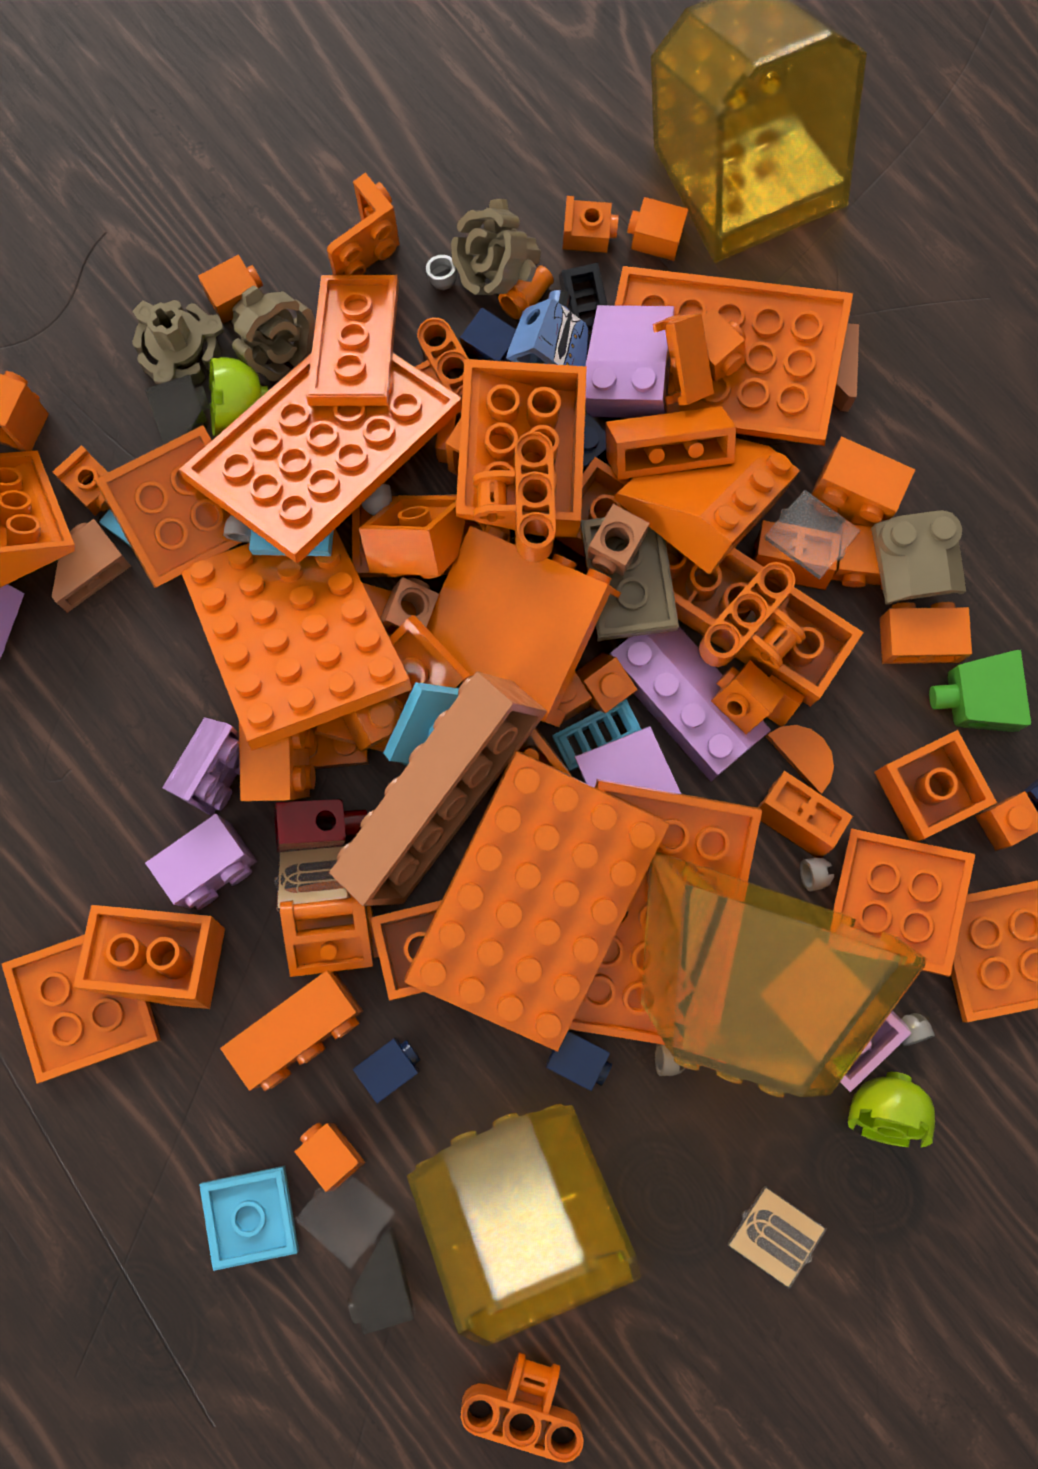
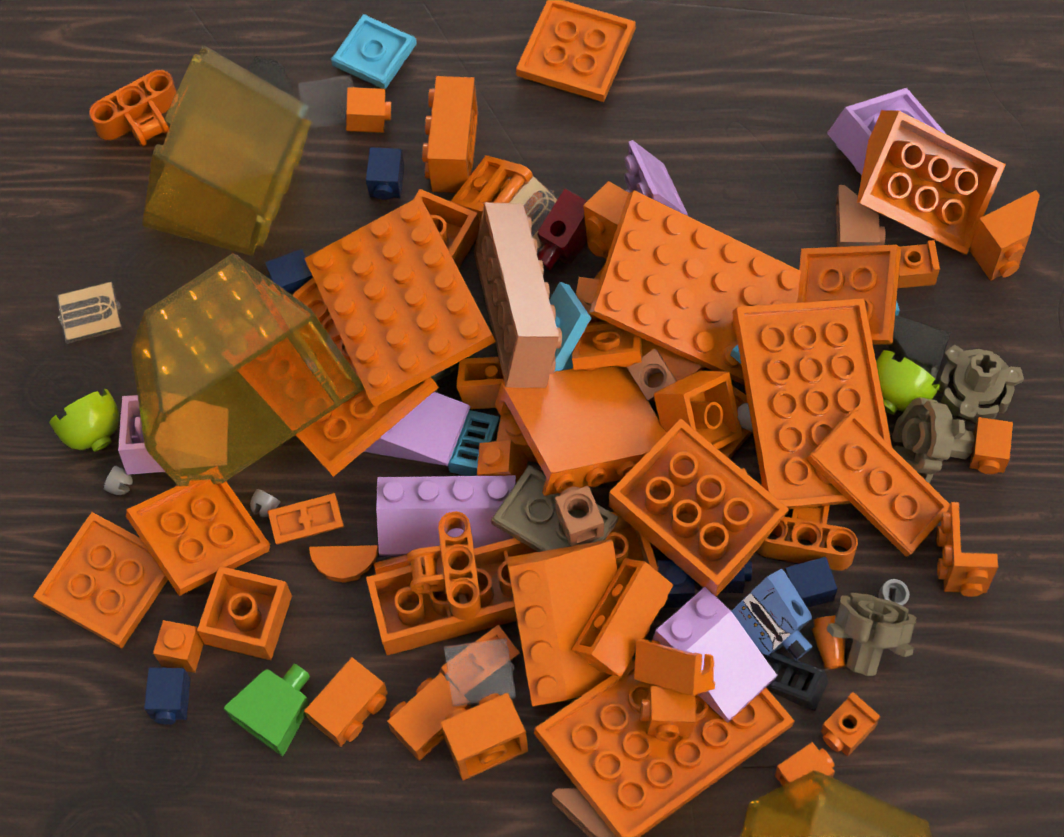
camera: 140 degrees right, 15 degrees down
(150, 956) = (565, 93): orange slope -> none
(202, 863) = (594, 151): lavender brick -> none
(509, 498) = (662, 446): orange piece -> none
(747, 696) = (409, 533): orange brick -> none
(919, 555) = (397, 728): dark tan slope -> none

